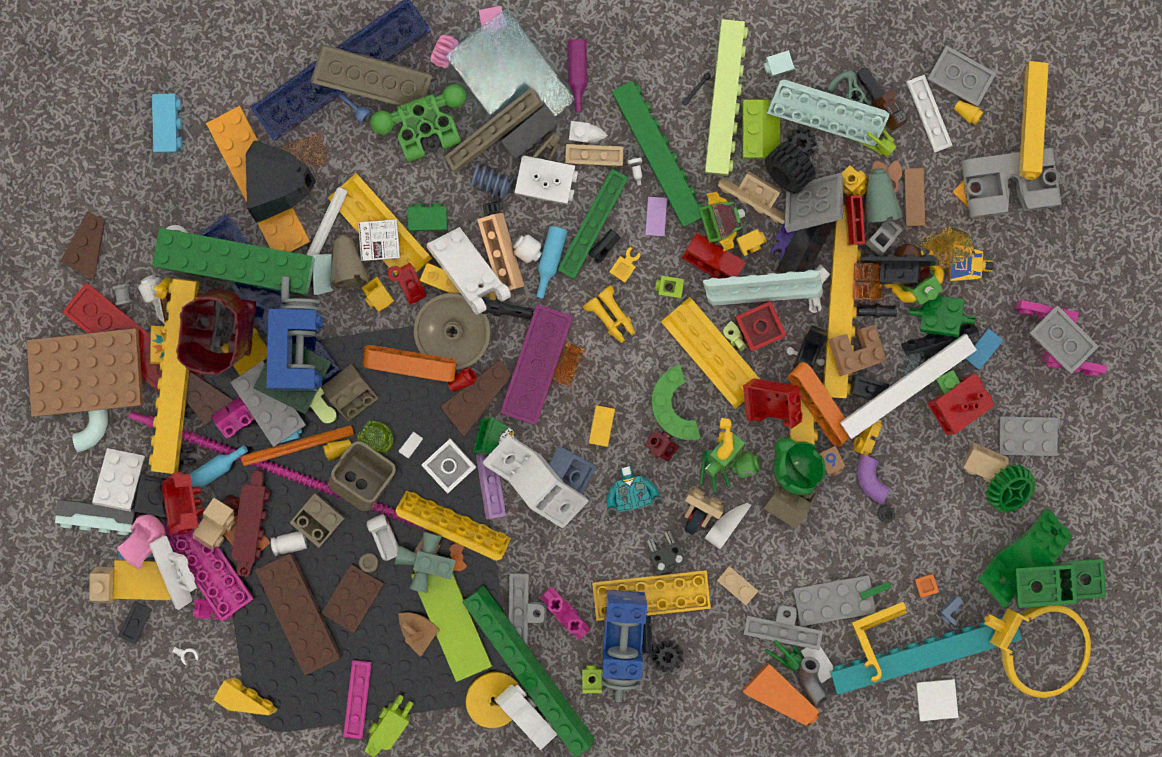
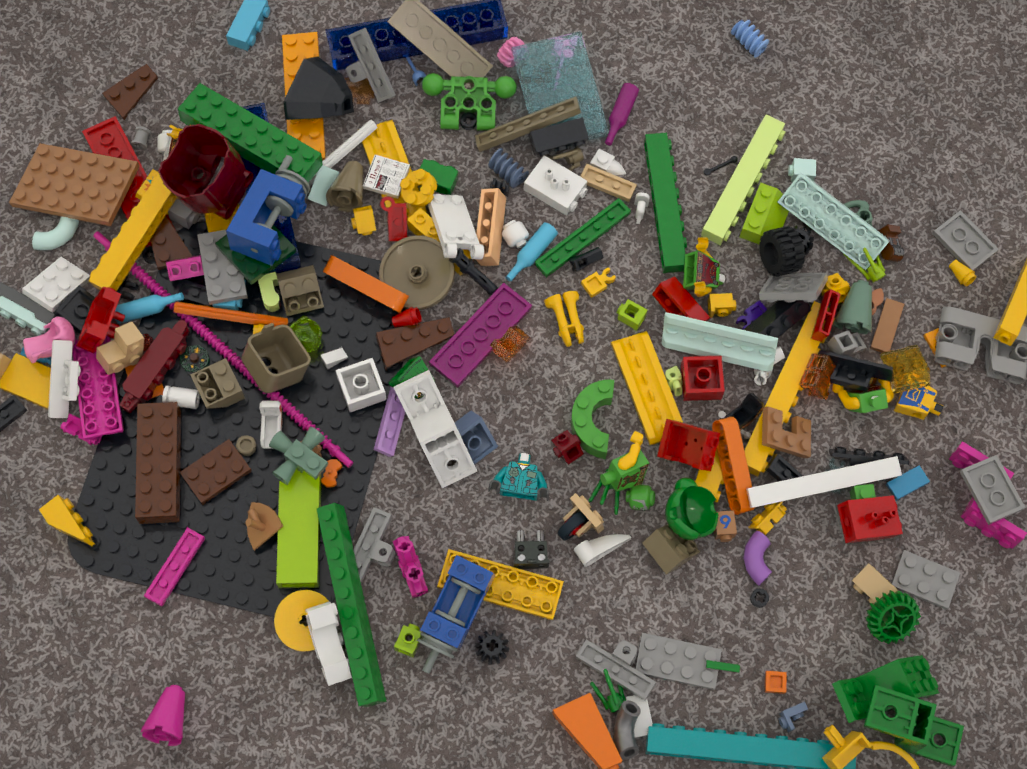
camera: 20 degrees right, 20 degrees down
(180, 652) = (33, 460): white piece -> none
(282, 498) = (194, 358): none -> piece
(310, 130) = (369, 66): none -> light grey plate
(388, 728) = (191, 604): lime hinge -> none
(409, 250) = (426, 192): none -> yellow plate
(452, 526) = (336, 434): yellow plate -> none
(601, 426) = (518, 408): yellow brick -> none
(647, 647) = (480, 620): black axle -> none
(656, 216) = (642, 253): lavender tile -> none
(737, 585) = (588, 608): tan plate -> none
(757, 194) = (743, 266): tan bracket -> none
(869, 83) = (878, 214): black bar -> none
(869, 622) = (709, 694): yellow hinge -> none
(877, 310) = (817, 409): black pin -> none
(929, 113) = (925, 262): white tile -> none
(942, 316) = (878, 435): green plate -> none

